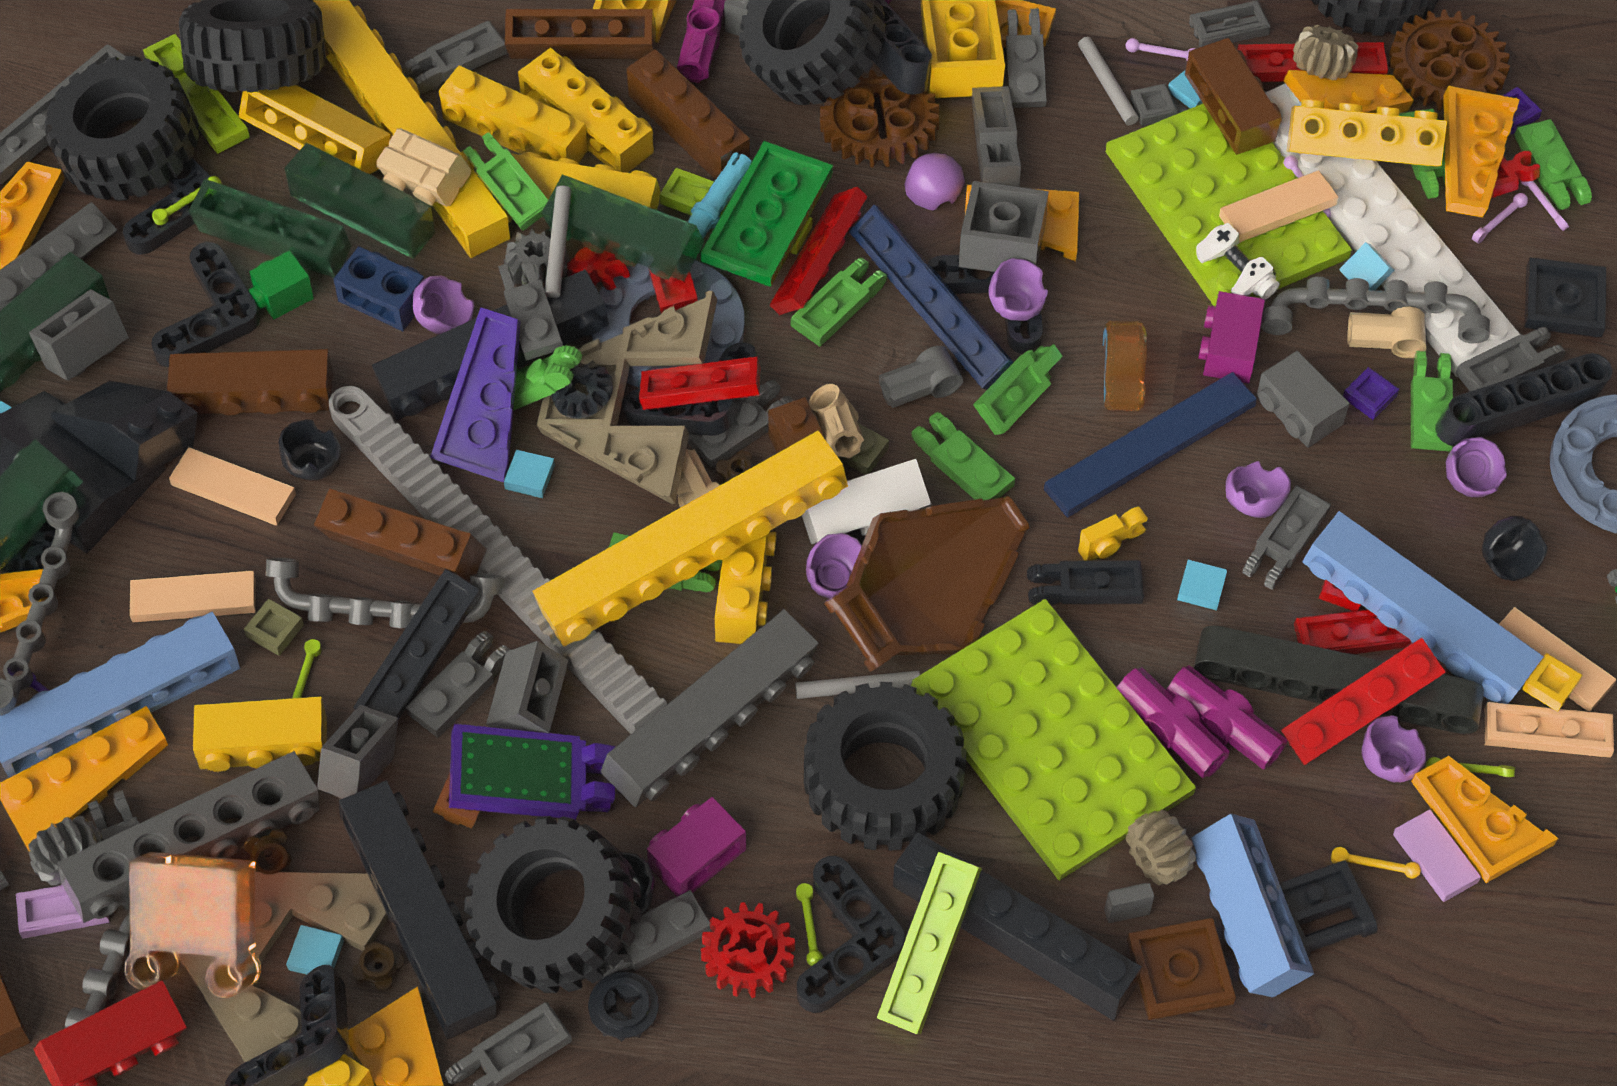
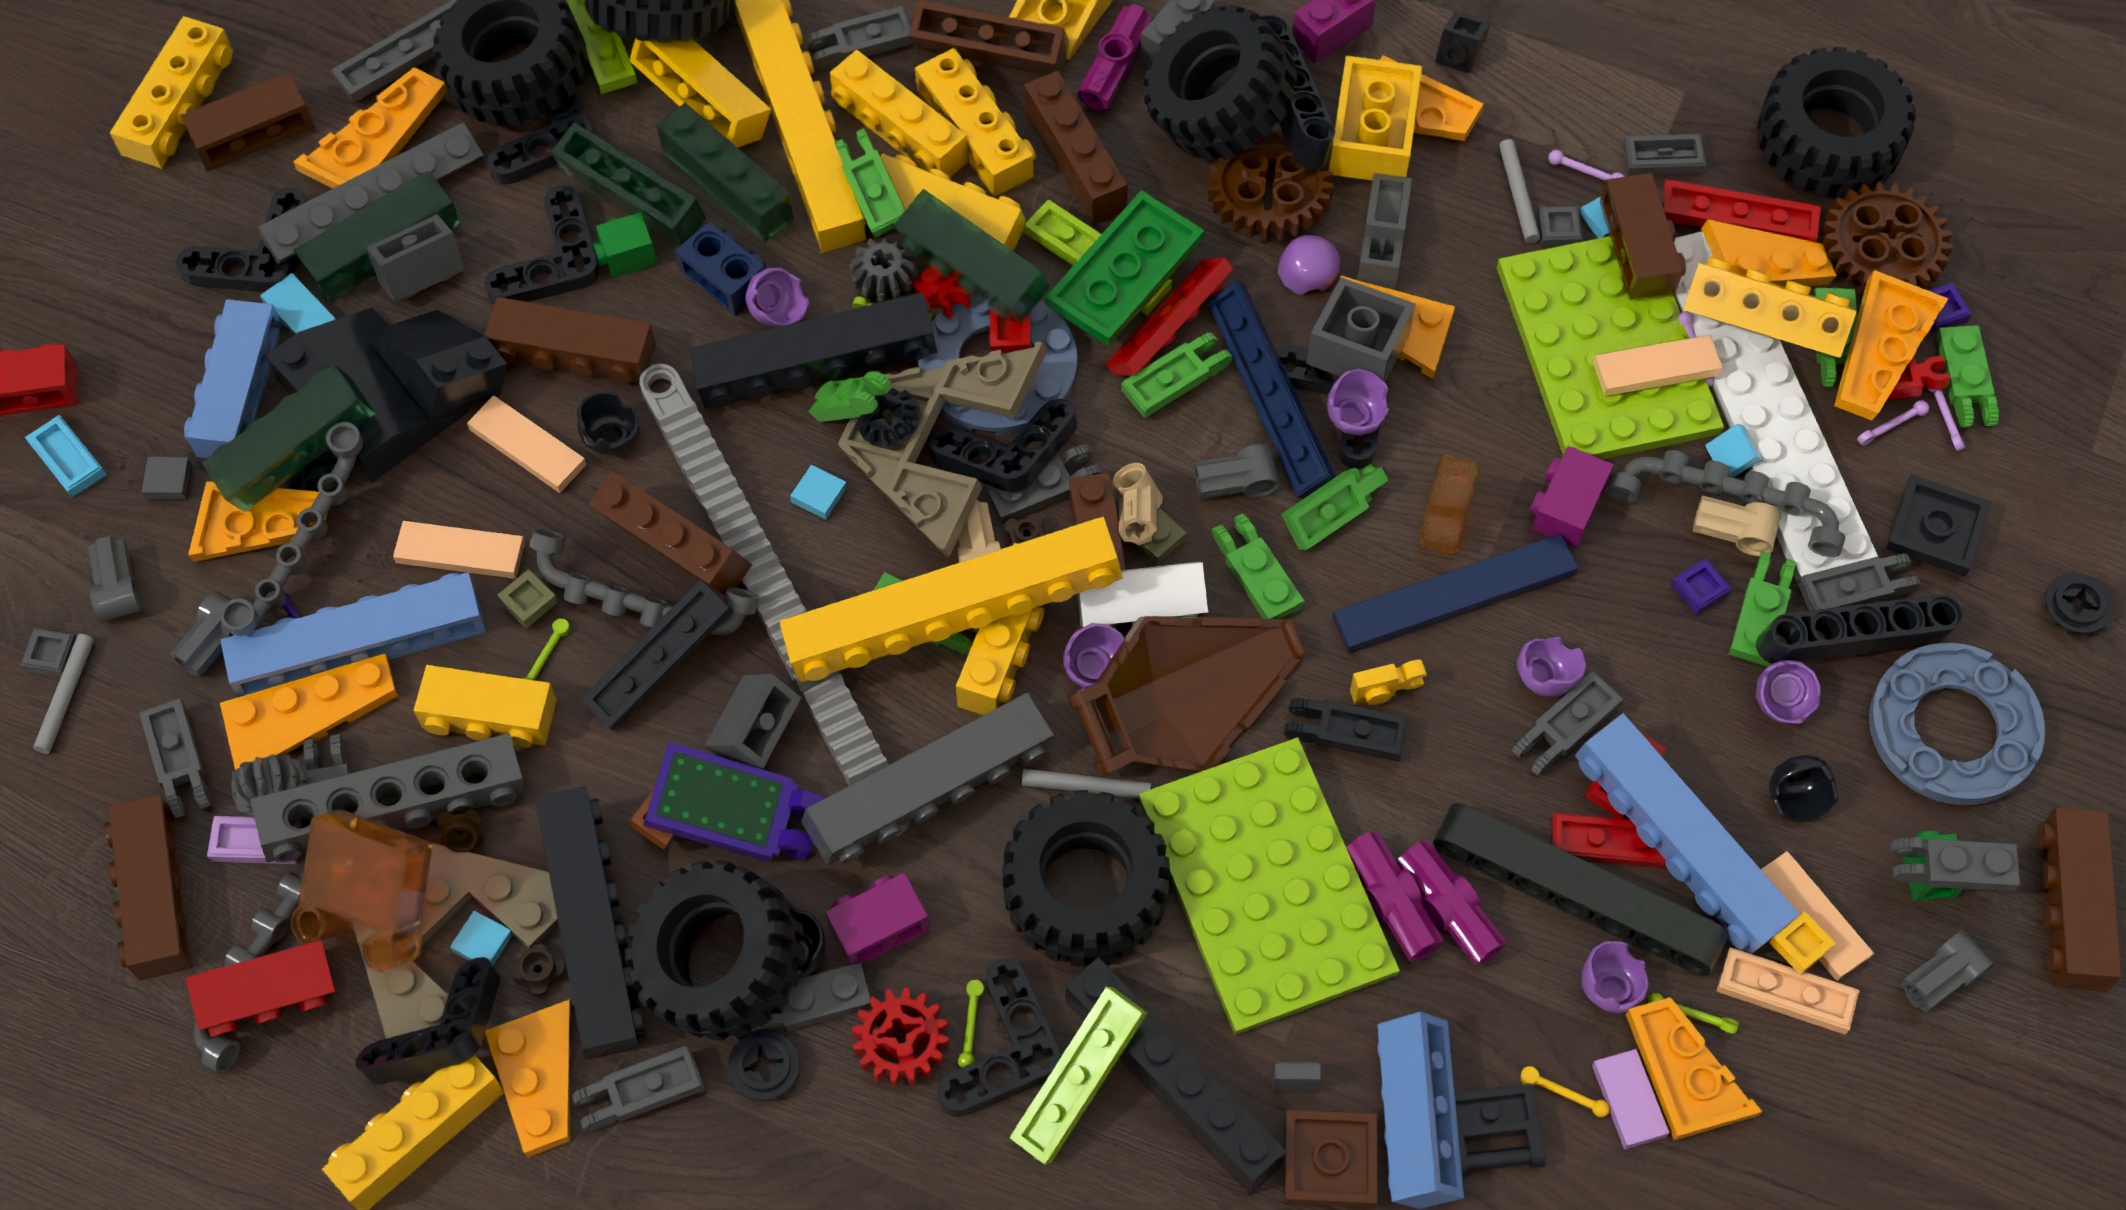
camera: 15 degrees right, 5 degrees up
(160, 216) = (527, 149): lime hinge -> none
(357, 752) = (569, 749): dark grey brick -> none
(423, 168) = (790, 152): tan brick -> none
(457, 686) = (689, 698): dark grey hinge -> none
(481, 405) = (784, 415): dark purple wing -> none
(531, 307) = (856, 327): dark grey hinge -> none
(558, 241) = (901, 259): light grey bar -> none
(700, 383) = (1007, 436): red plate -> none
(707, 212) = (1067, 252): medium azure pin -> none
(1025, 62) = (1436, 156): dark grey hinge -> none
(1160, 847) = (1343, 1027): dark tan gear -> none
(1202, 585) = (1466, 755): medium azure tile -> none
(1256, 274) = (1612, 435): white piece -> none
(1302, 399) = (1625, 579): dark grey brick -> none
(1325, 52) = (1751, 208): dark tan gear -> none
(1362, 701) = (1594, 920): red plate -> none

